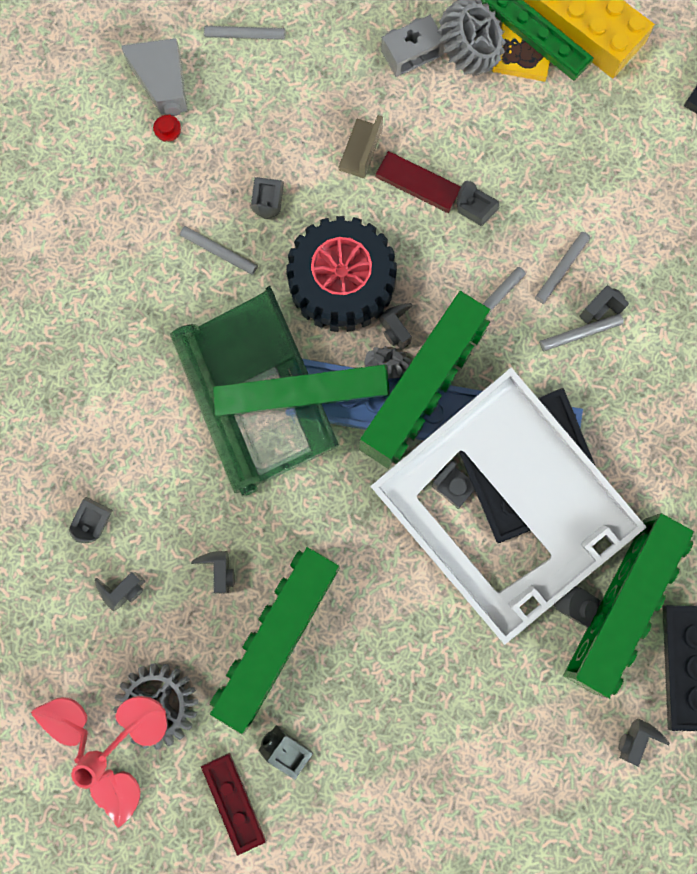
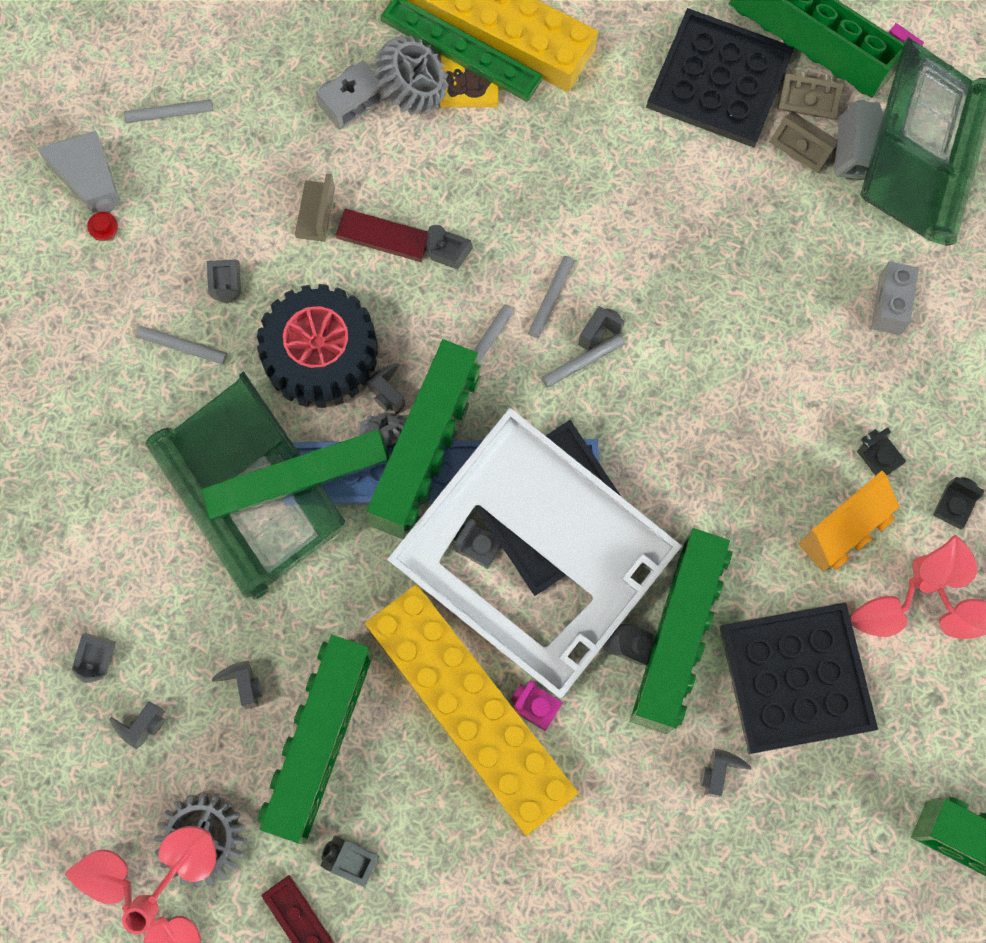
camera: 15 degrees left, 5 degrees down
(422, 640) = (471, 710): none -> yellow brick
(480, 644) = (535, 705): none -> dark pink bracket

